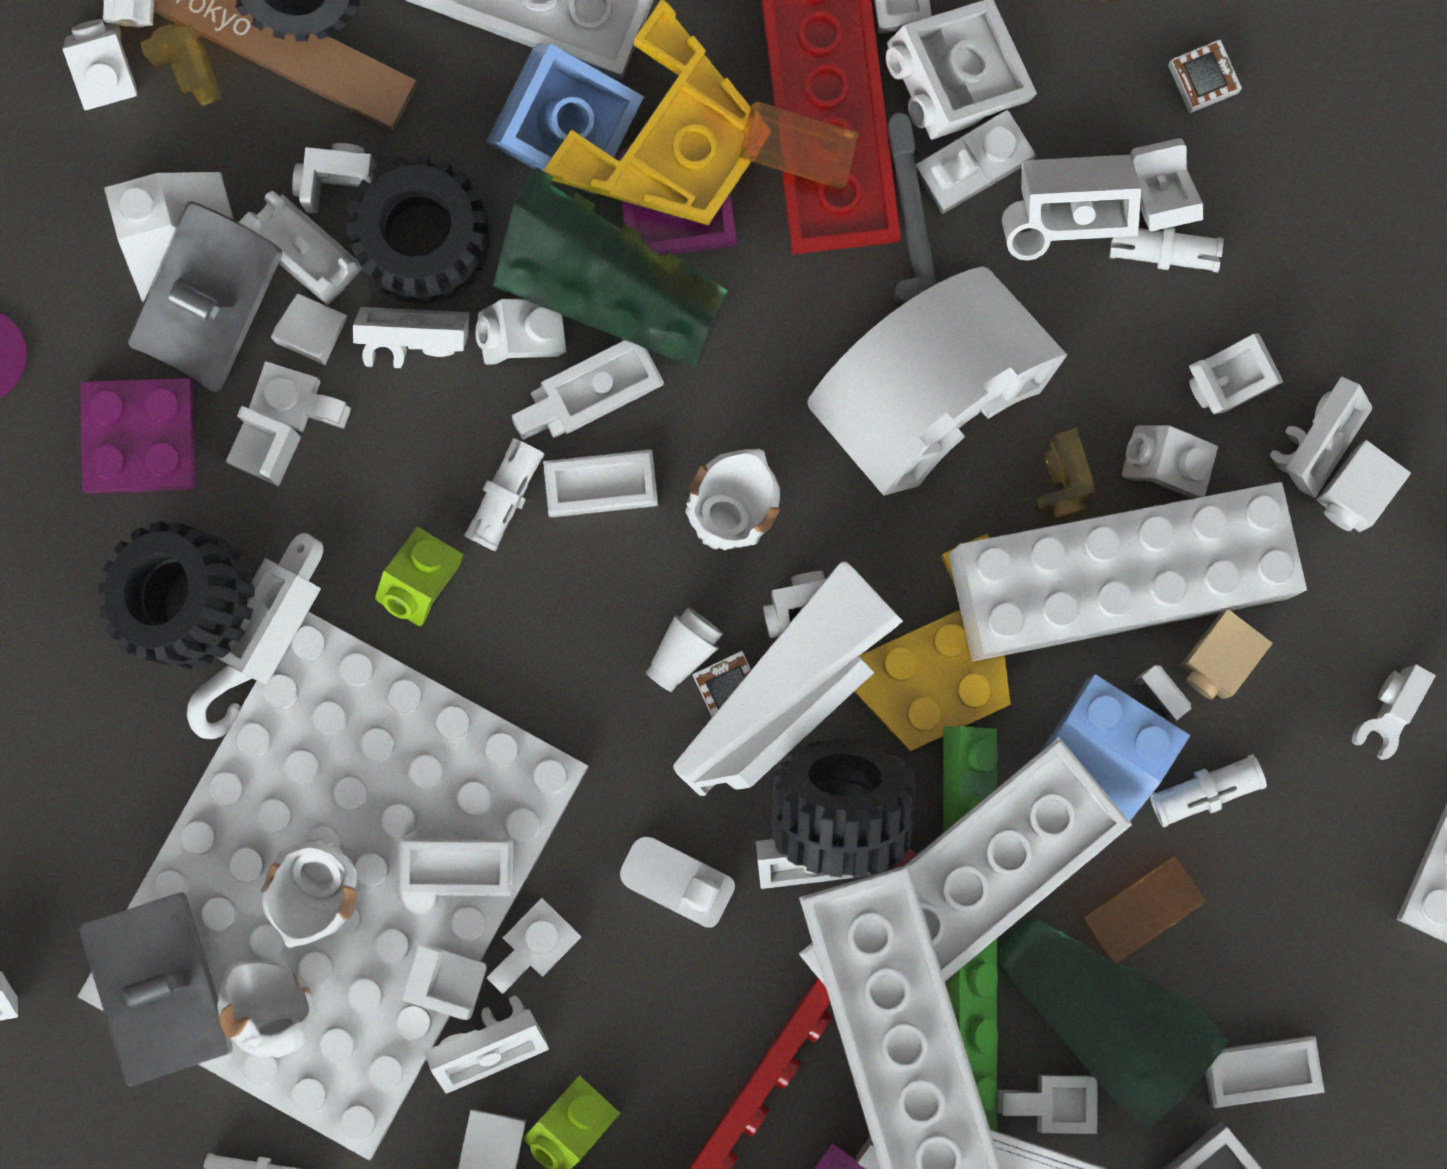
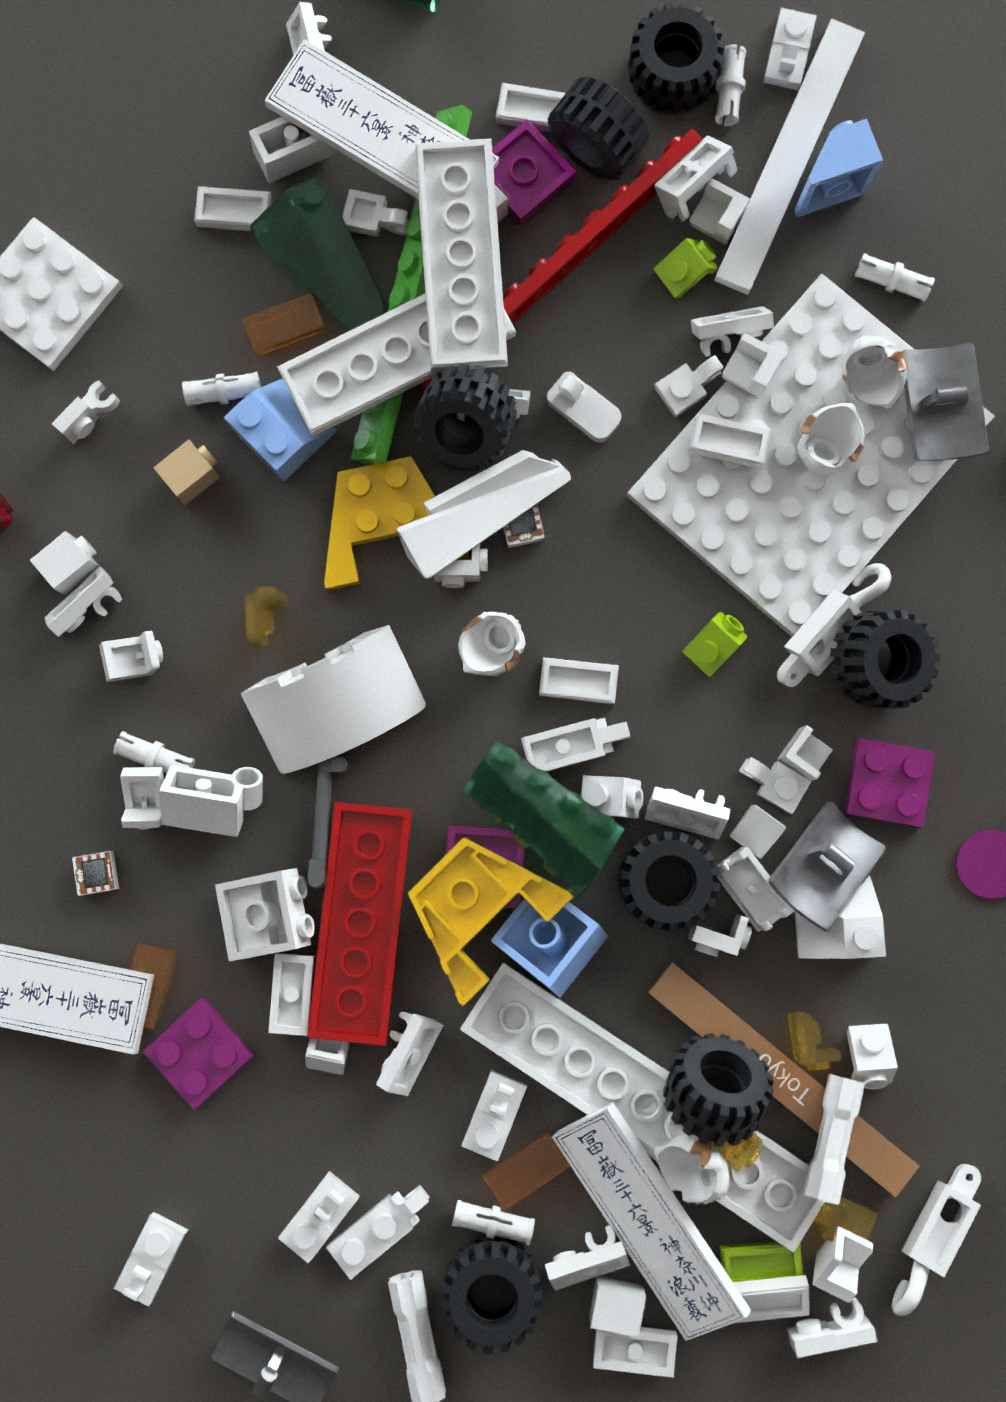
camera: 160 degrees left, 0 degrees up
(504, 494) = (646, 685): white pin -> none
(683, 649) = (546, 555): white cone -> none
(798, 145) = (390, 878): clear orange tile -> none
(974, 162) = (270, 848): white plate -> none
(1126, 571) = (237, 536): white brick -> none
(1163, 693) = (234, 455): white tile -> none
(1170, 459) = (190, 610): white bracket -> none

